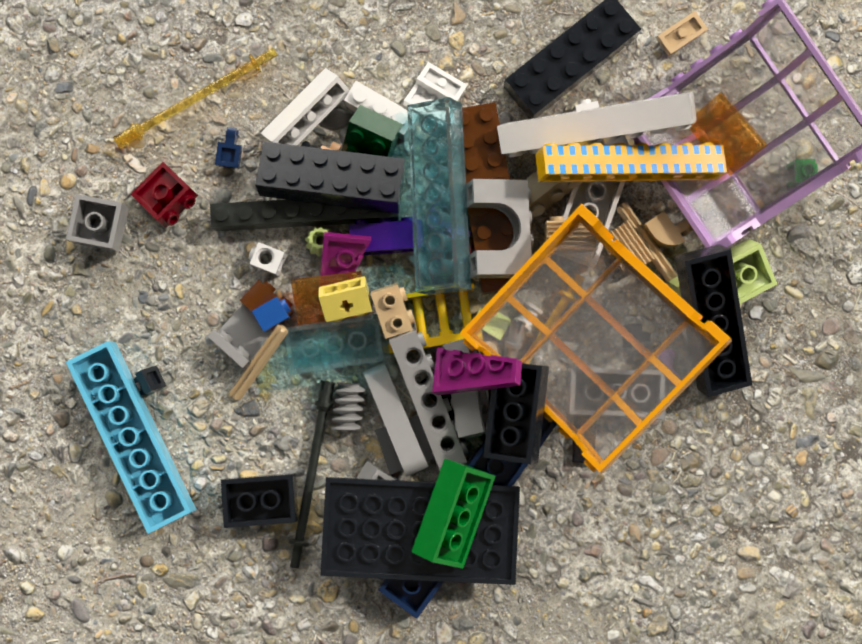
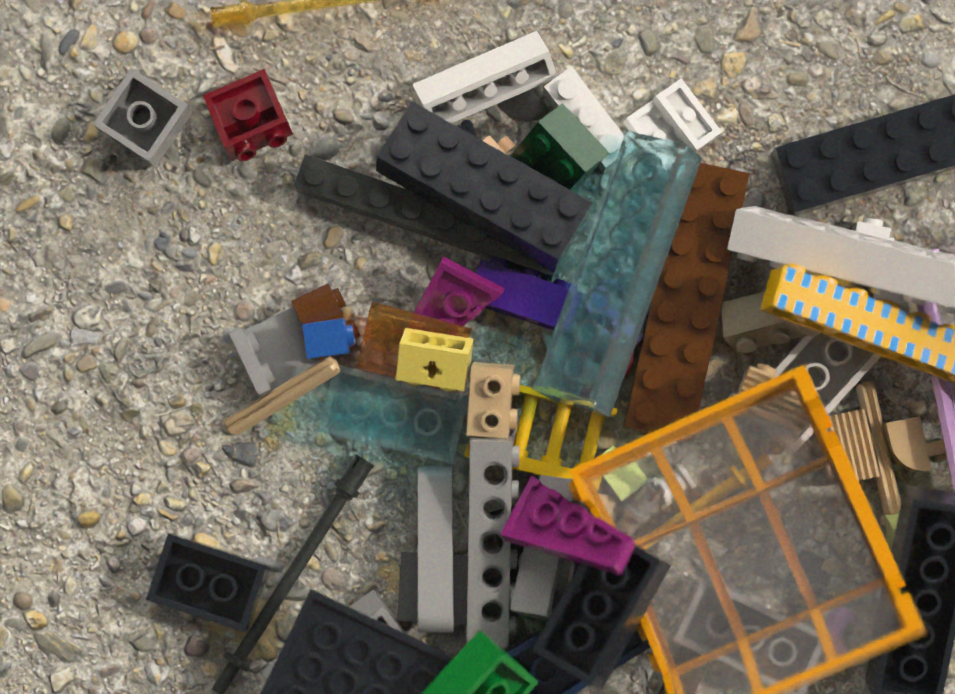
camera: 30 degrees right, 0 degrees up
(131, 436) = (71, 424): medium azure brick -> none
(150, 380) = (126, 359): black tile -> none
(229, 153) = (358, 93): dark blue plate -> none
(276, 263) = (357, 274): white brick -> none
(312, 237) = (424, 254): yellowish green piece -> none
(348, 407) = (378, 506): light grey piece -> none
(513, 200) = (716, 318): light grey arch -> none

